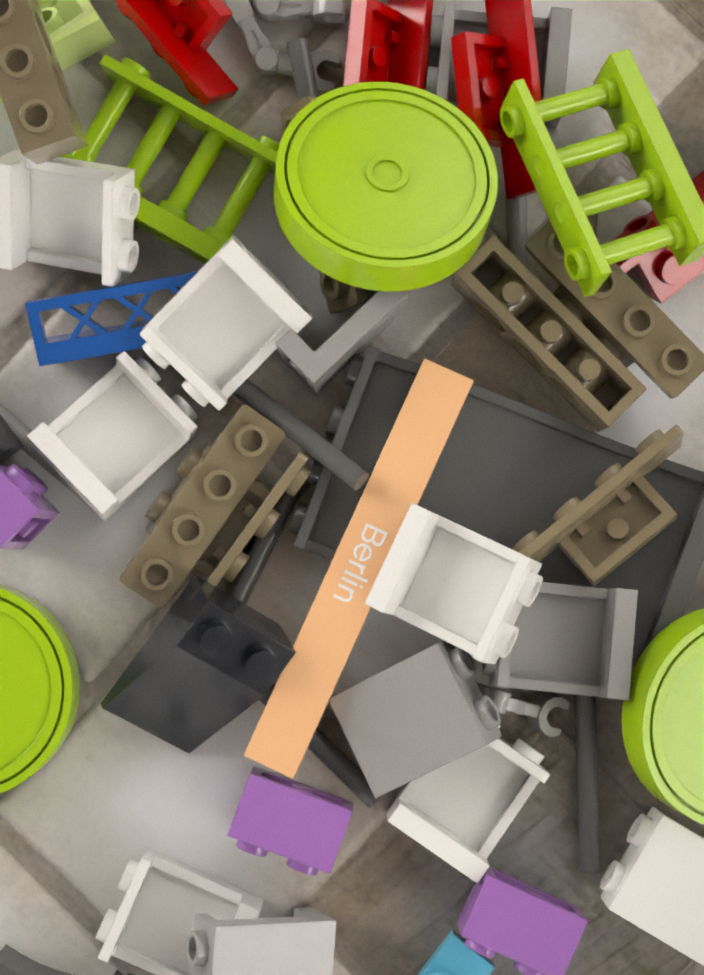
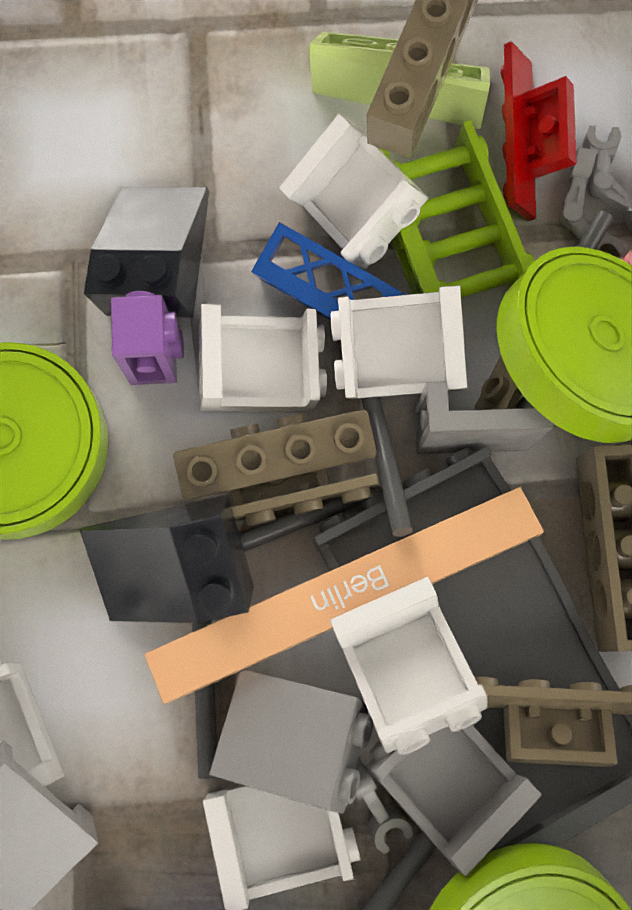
camera: 40 degrees right, 10 degrees down
(290, 821) = (133, 735): medium lavender brick -> none

